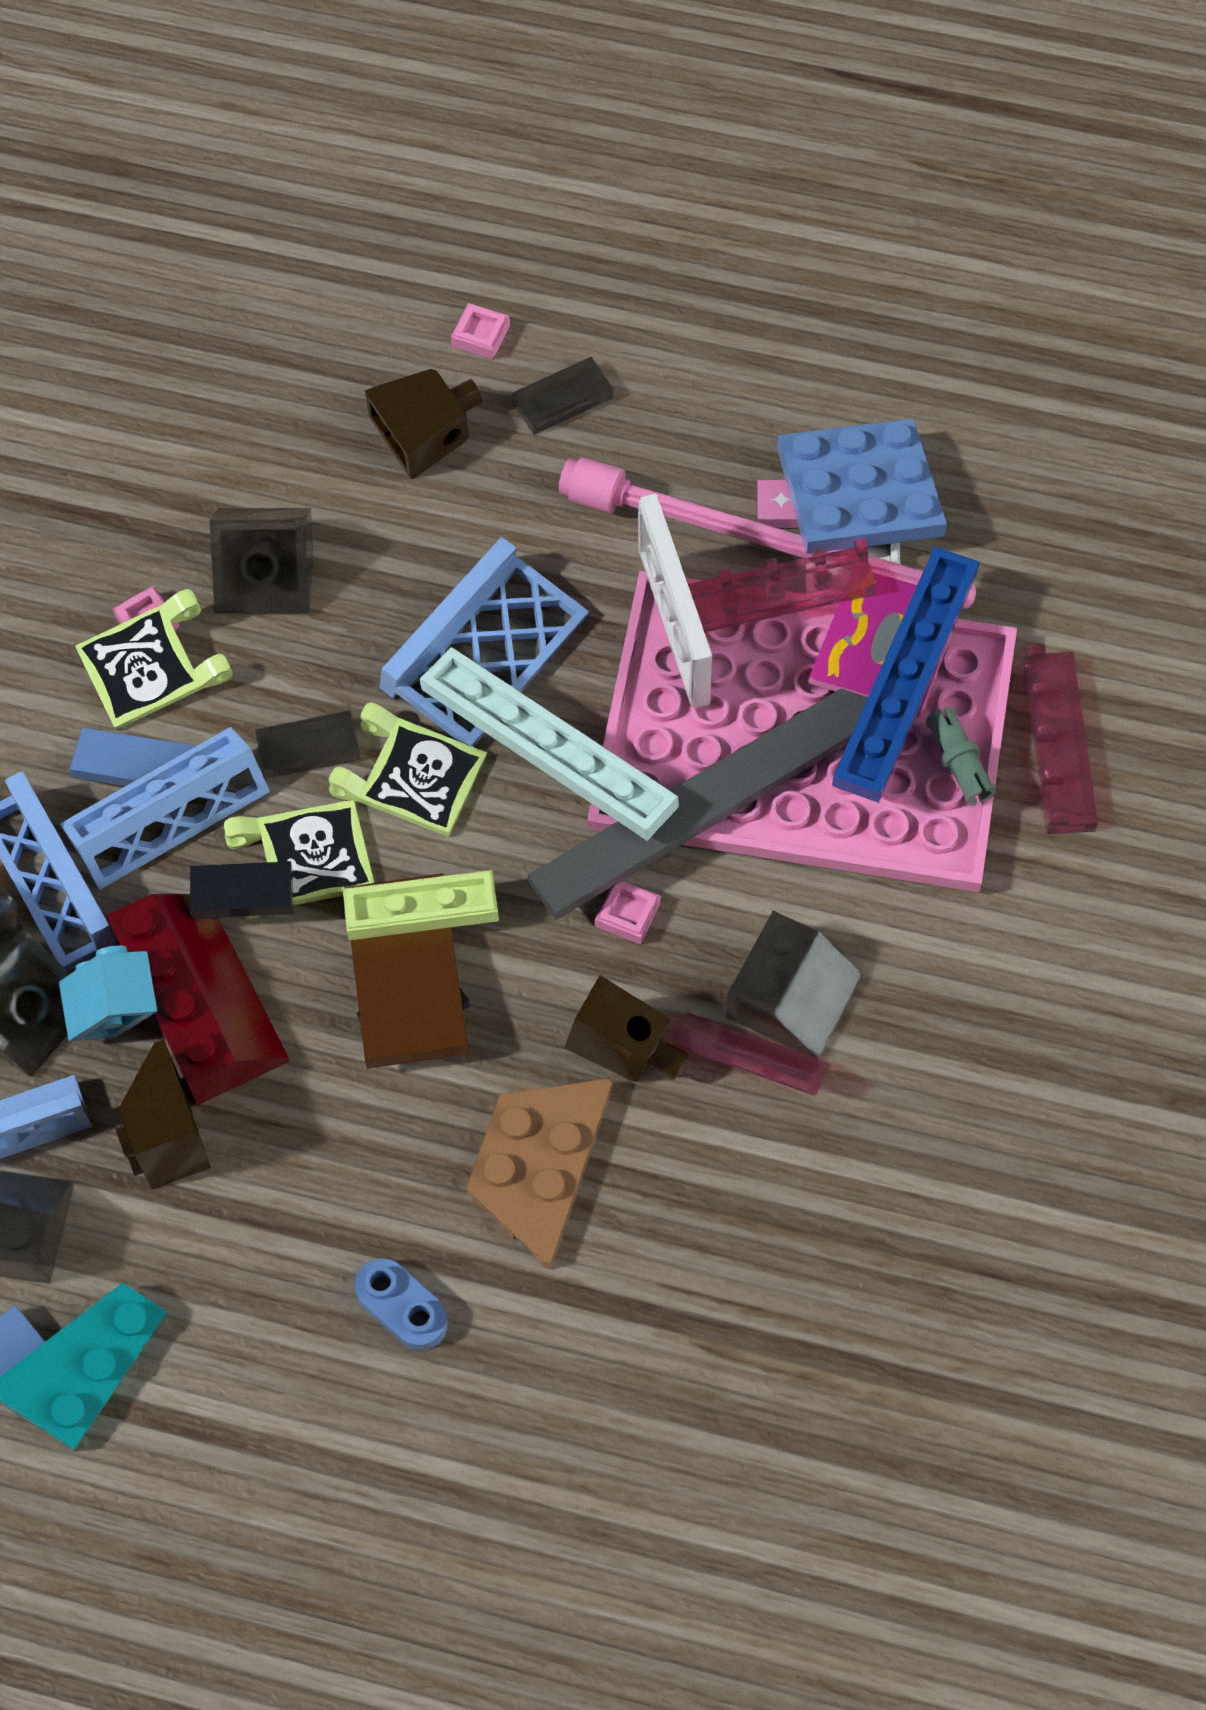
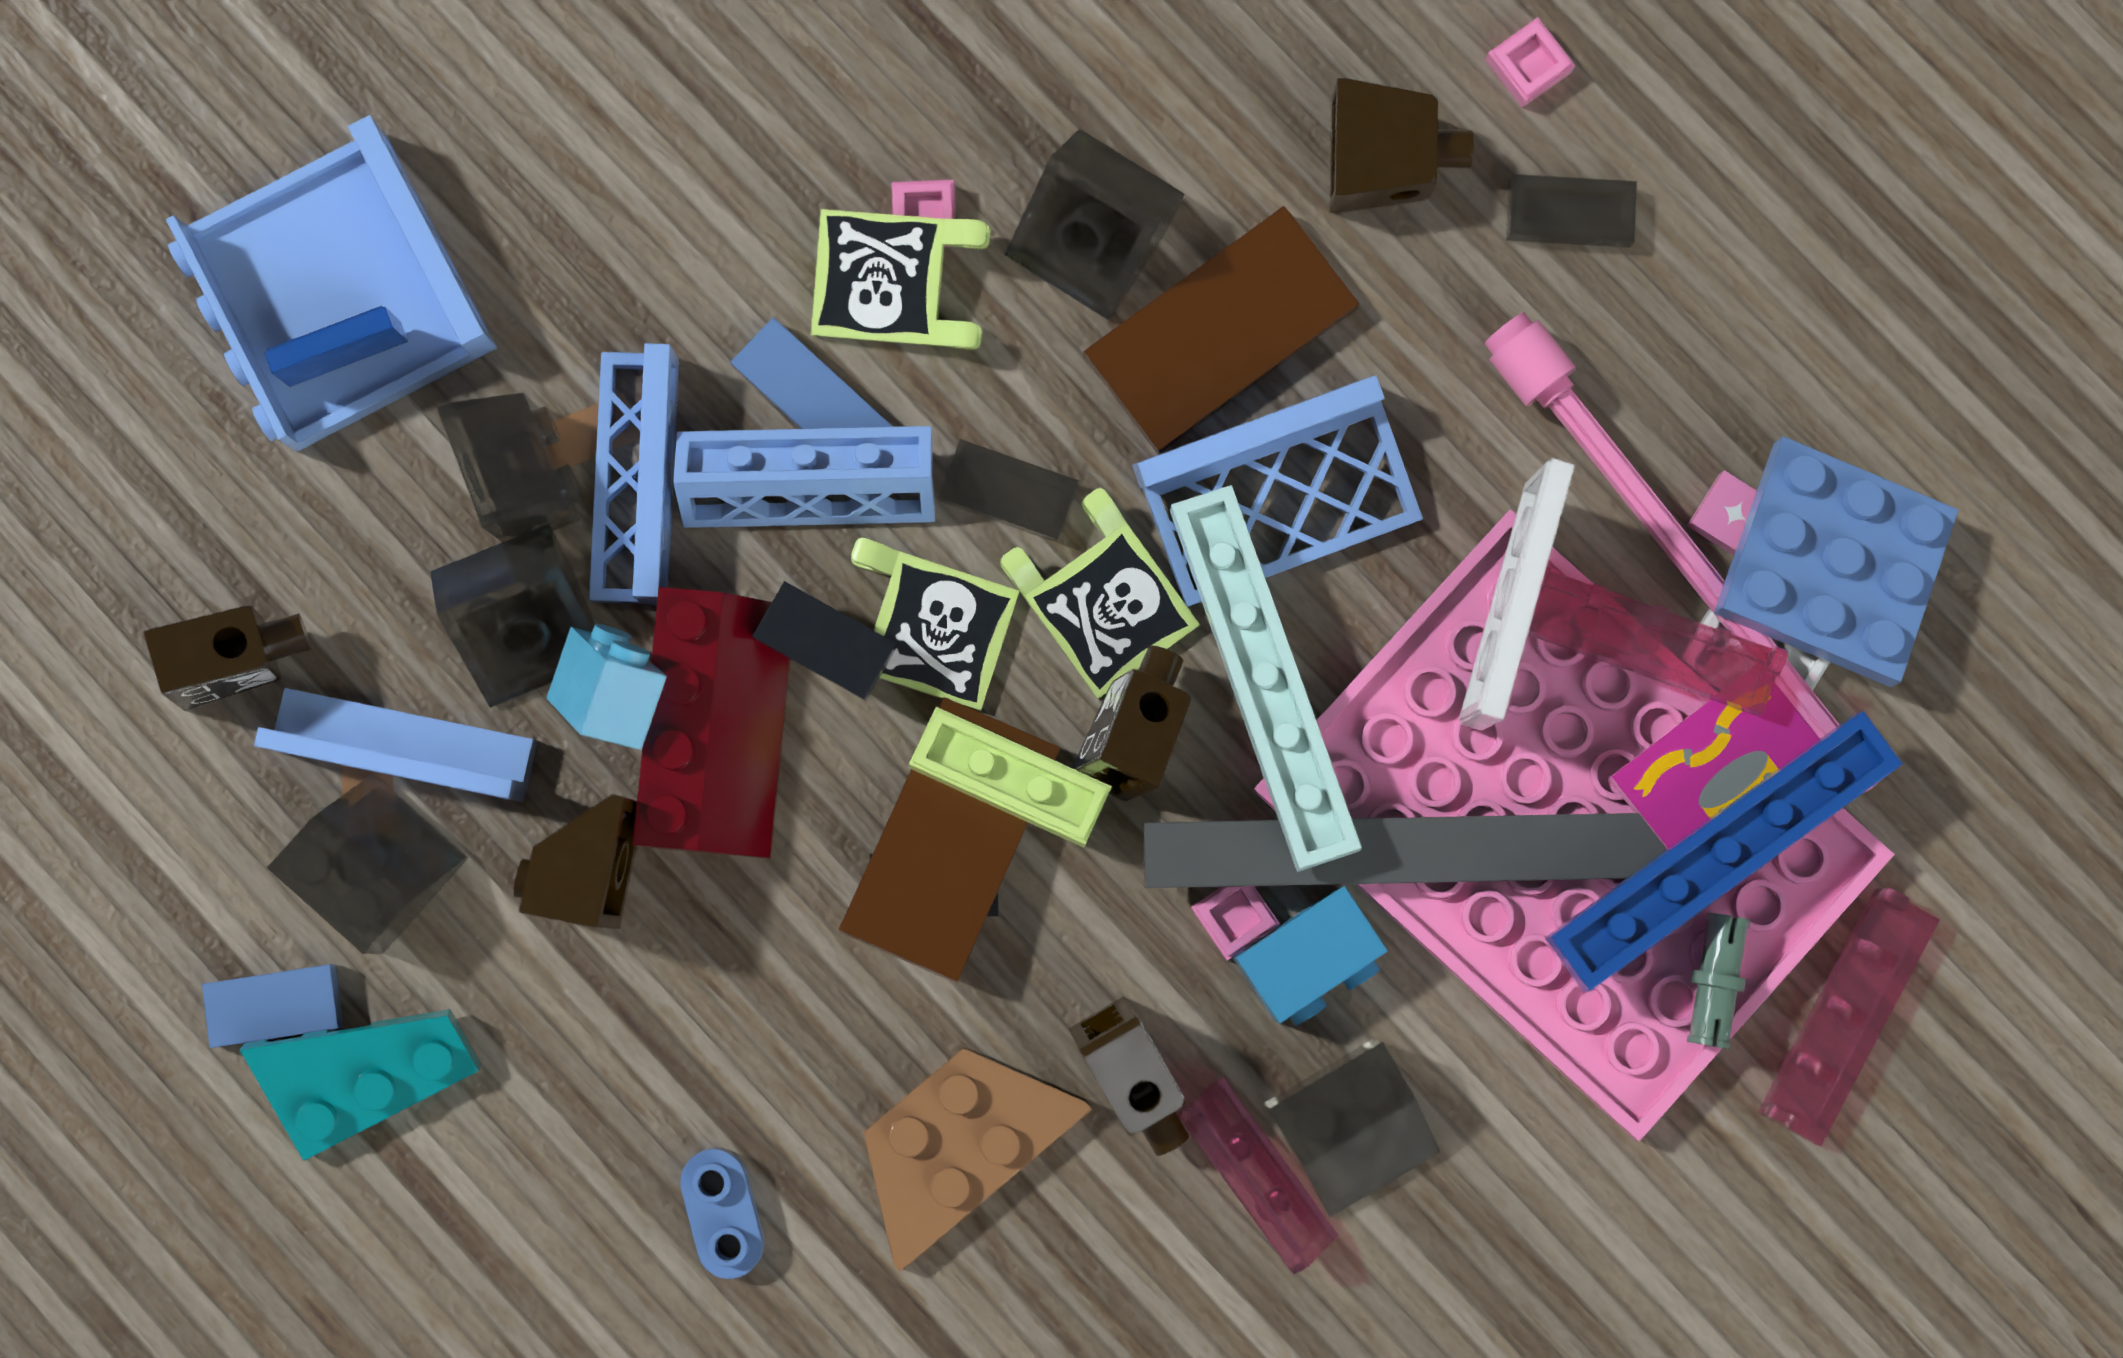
camera: 30 degrees right, 20 degrees up
(384, 577) = (1220, 329): none -> reddish brown tile
(485, 810) = (1136, 727): none -> dark brown torso
(692, 900) = (1311, 956): none -> dark azure brick

